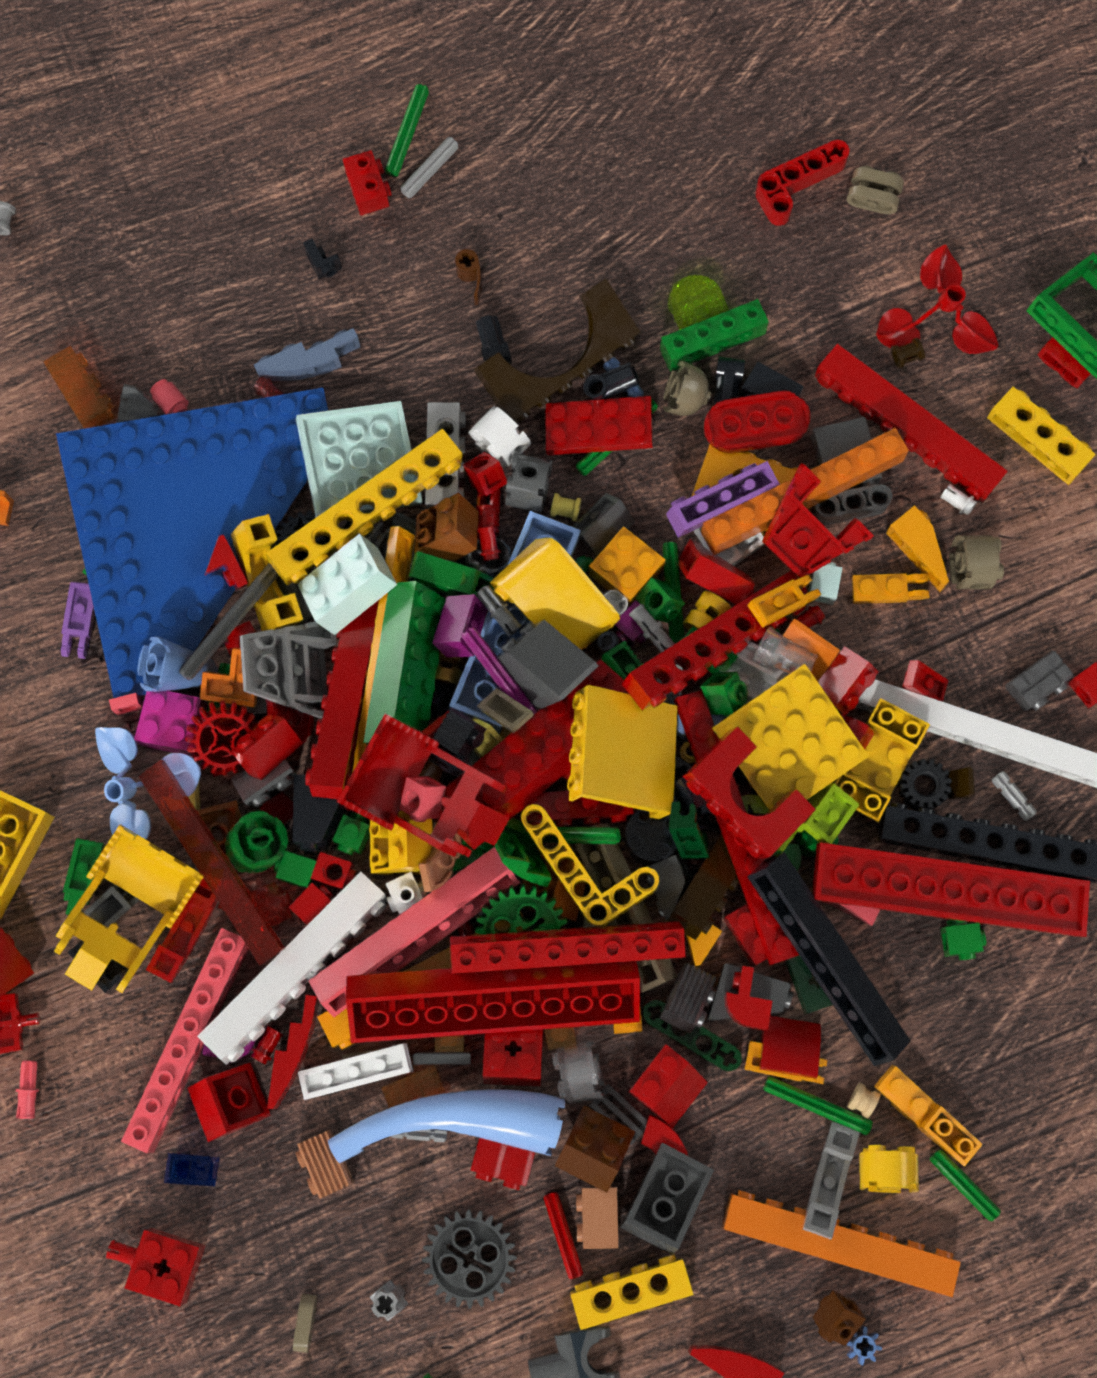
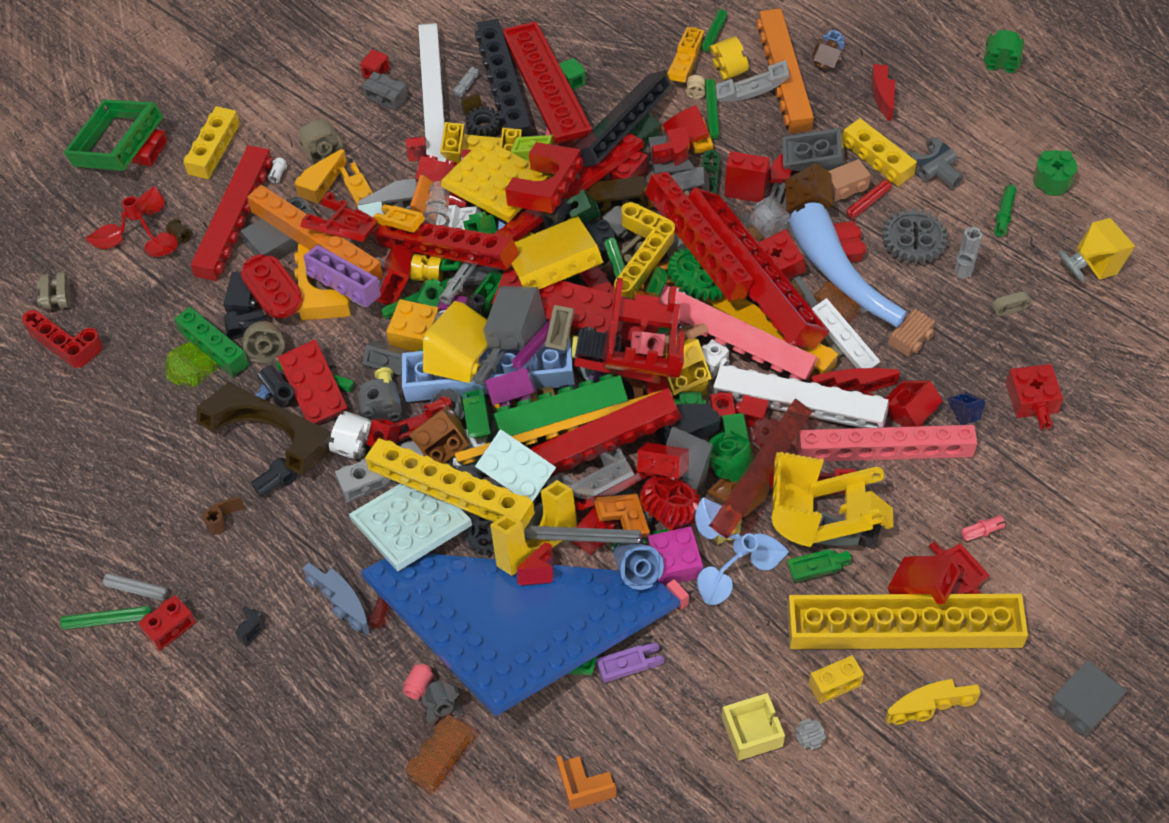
camera: 115 degrees left, 20 degrees down
(845, 621) = (395, 194): none -> light grey slope

